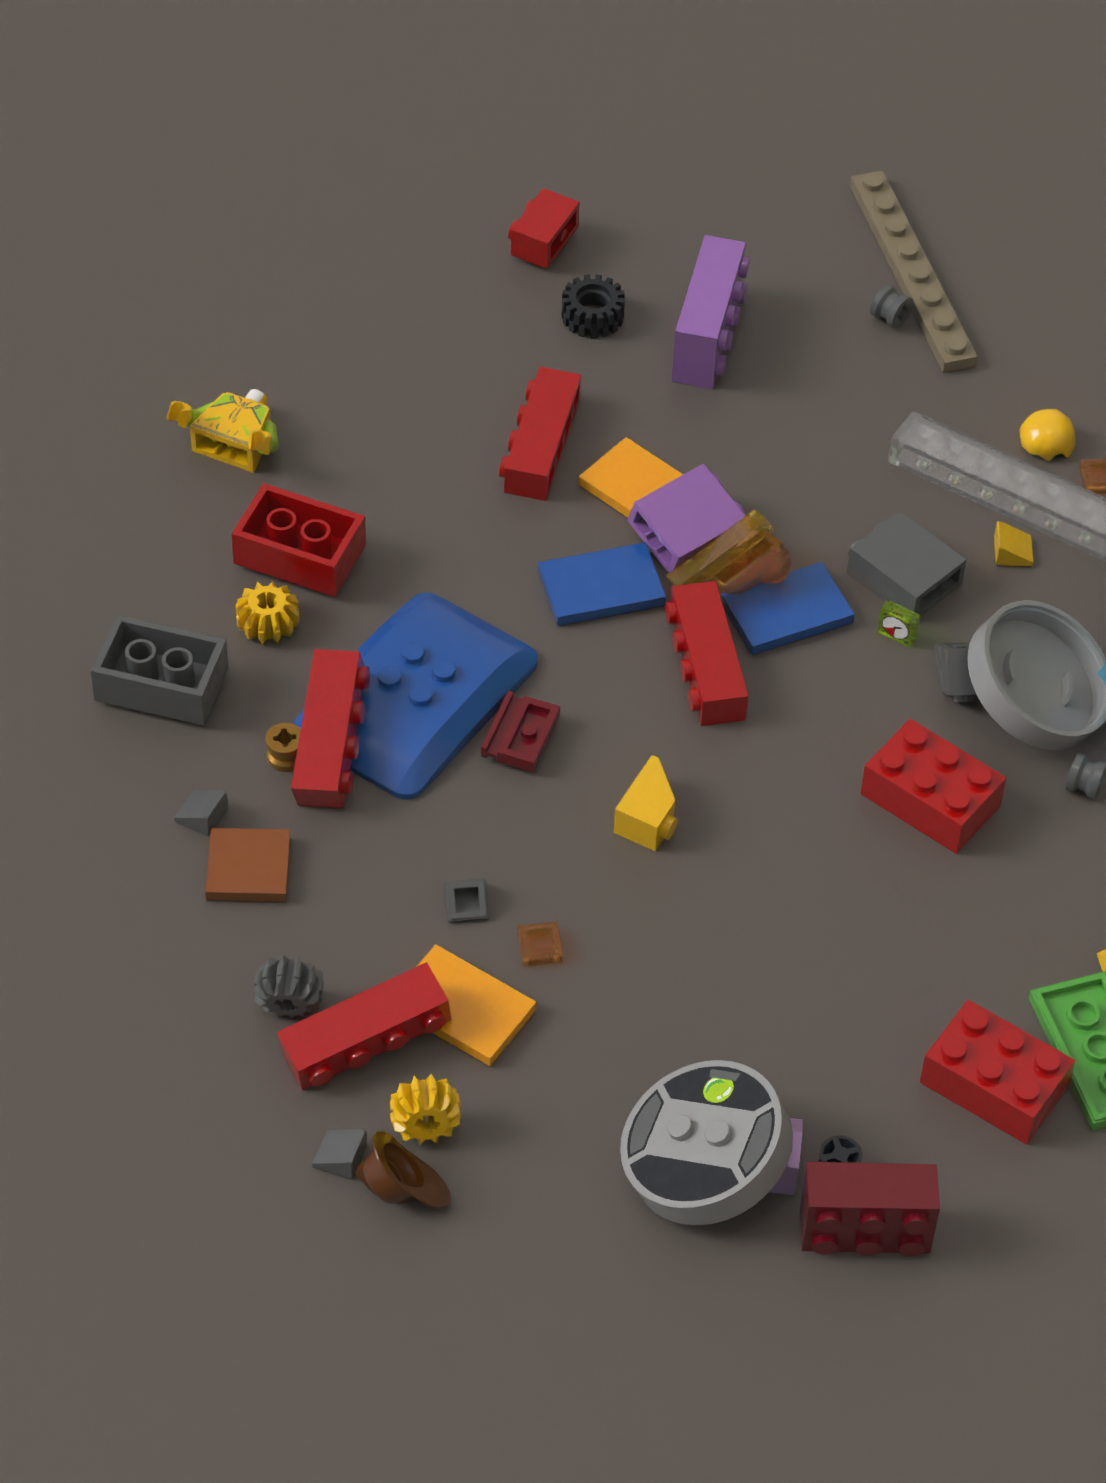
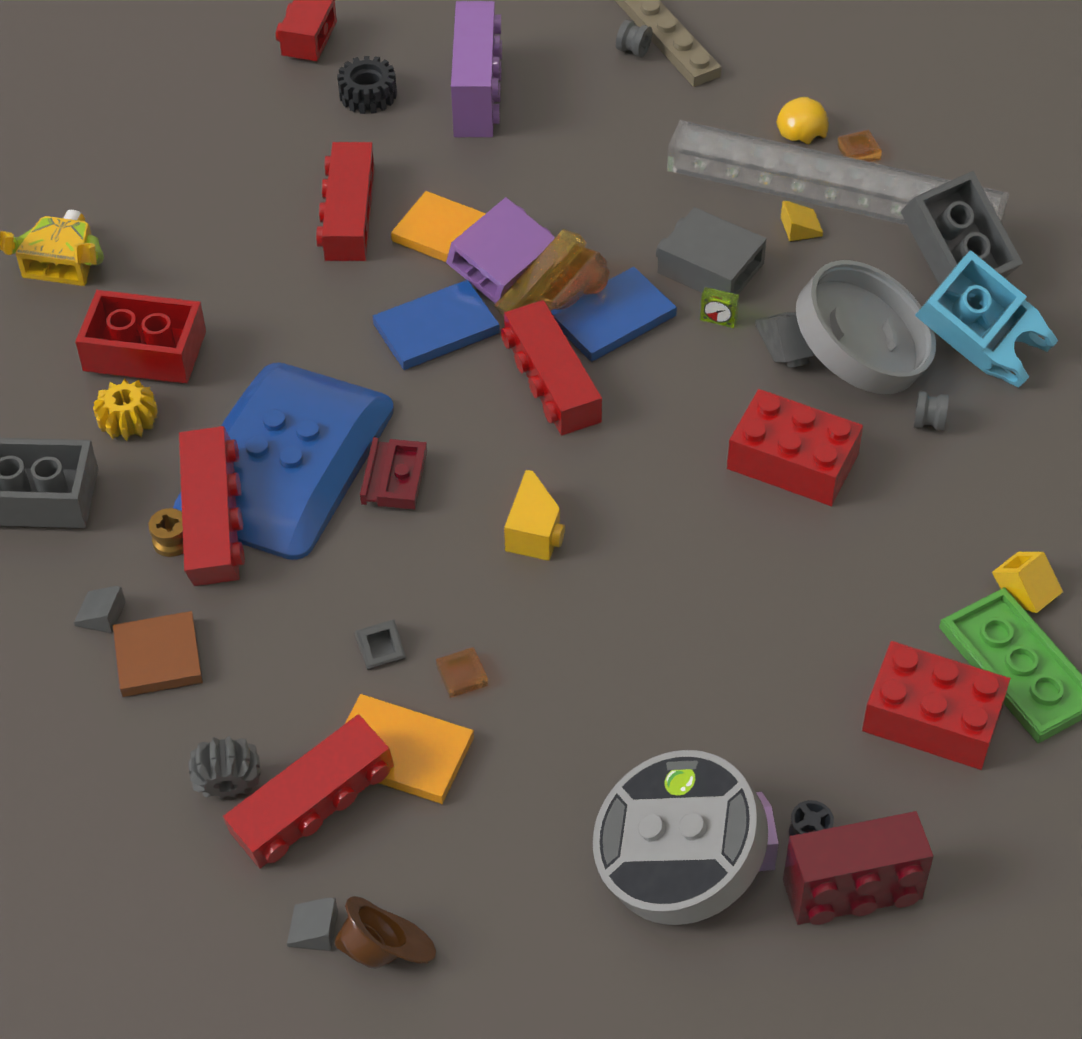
camera: 10 degrees left, 0 degrees up
(425, 1109) = (390, 863): yellow gear -> none

